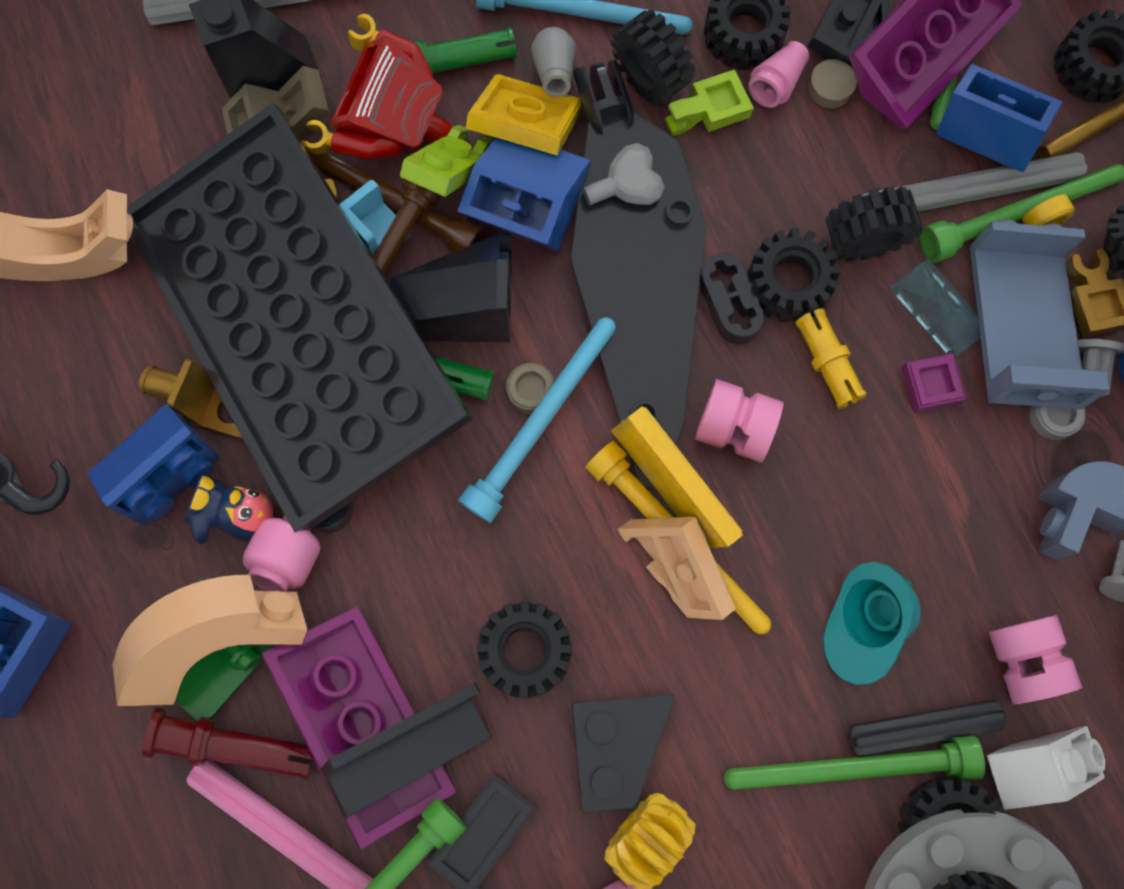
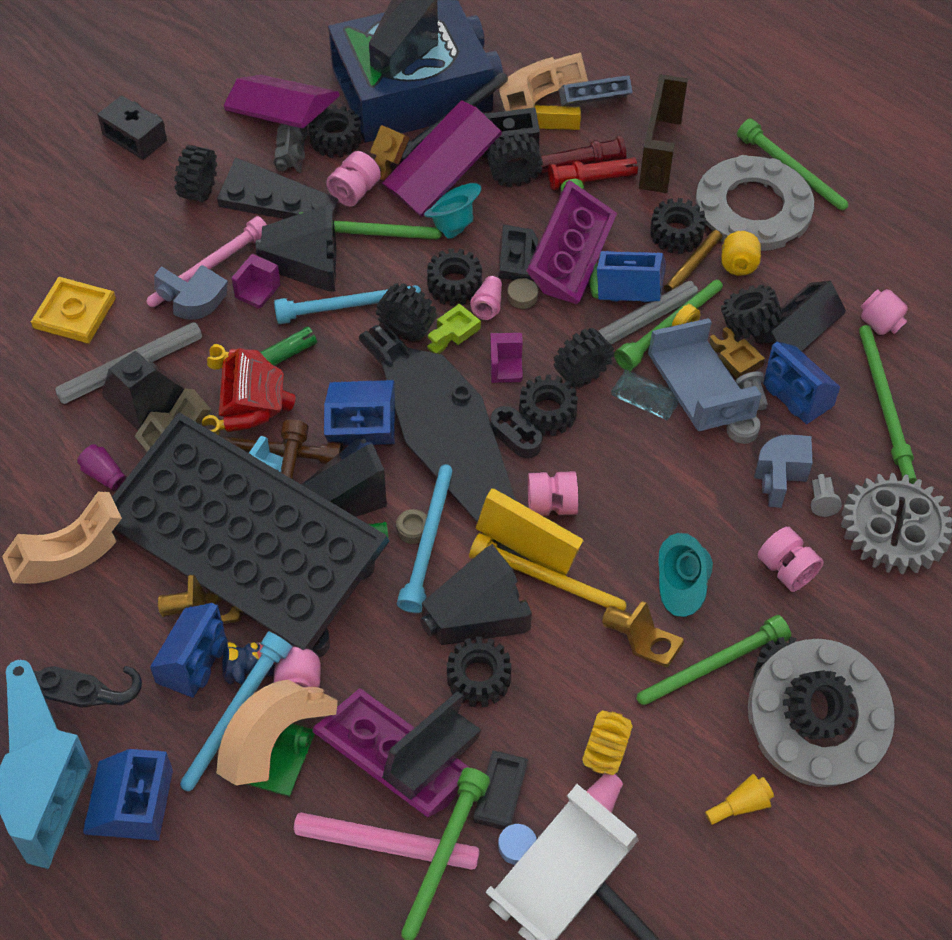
camera: 20 degrees left, 20 degrees down
(155, 139) = (100, 466): none -> magenta cone
(203, 741) = (297, 797): dark red pin -> none
(253, 517) = (272, 651): none -> medium azure piece
(444, 163) = (305, 409): lime hinge -> none
(524, 114) = (339, 370): yellow tile -> none
(554, 60) = (343, 334): light grey cone -> none
(560, 550) = (477, 602): none -> black slope
(617, 748) = (562, 708): black wing -> none
(628, 179) = (422, 383): light grey rock -> none
(683, 564) = (556, 584): light nougat wing -> none
(765, 178) = (506, 357): none -> magenta panel
(772, 684) = (642, 633): none -> pearl gold bracket
(831, 358) = (593, 443): yellow pin -> none
(926, 727) = (745, 624): black axle -> none
(933, 383) = (661, 436): magenta tile -> none
(1047, 768) = (826, 614): white slope -> none

